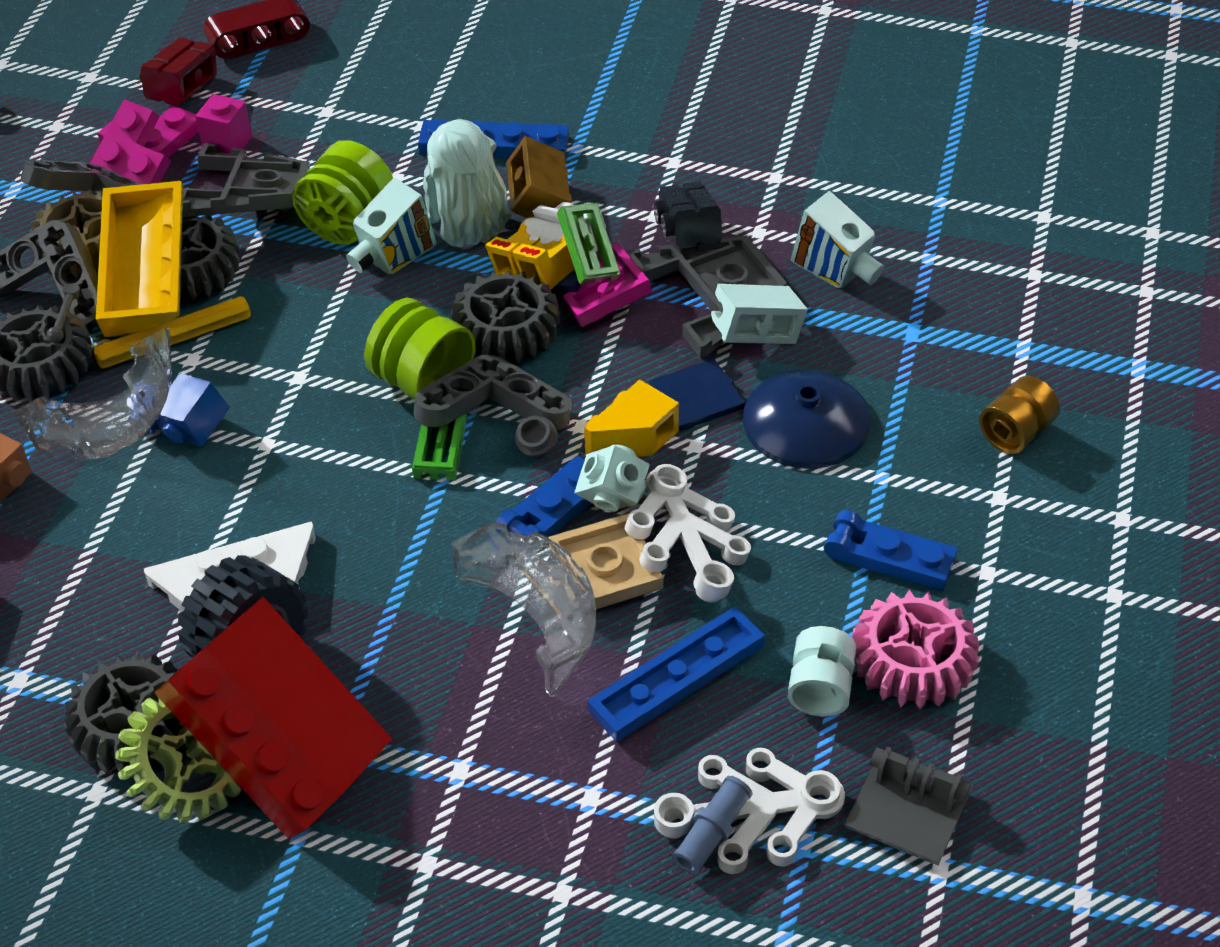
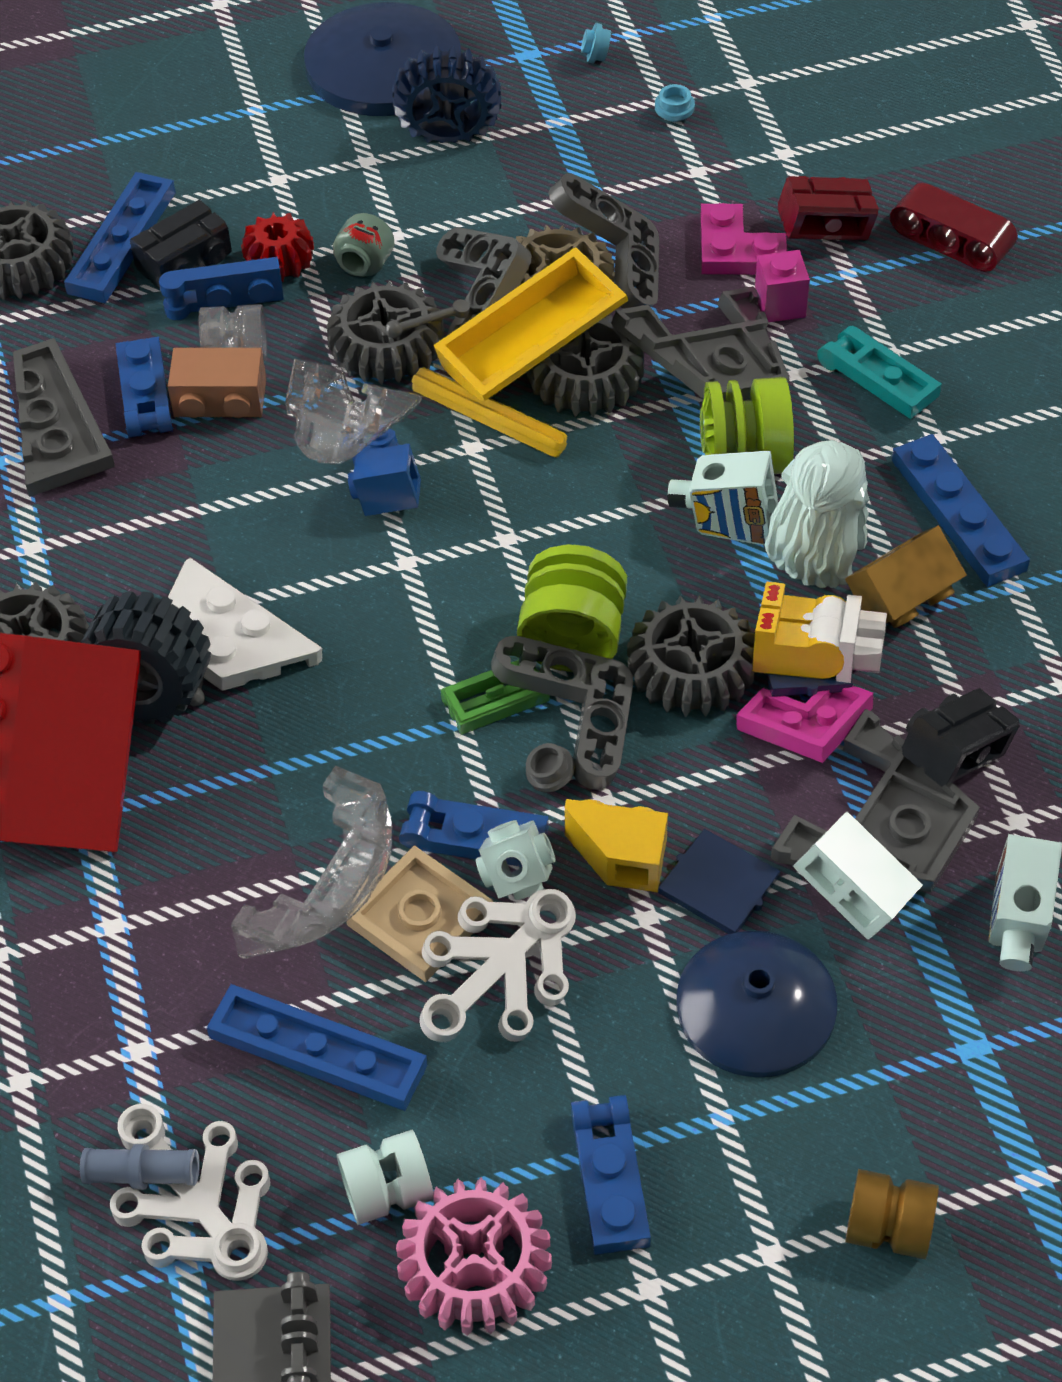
camera: 60 degrees right, 5 degrees up
(124, 143) = (687, 234): dark pink plate -> none
(343, 119) = (880, 371): none -> teal plate
(581, 243) = (792, 698): bright green tile -> none

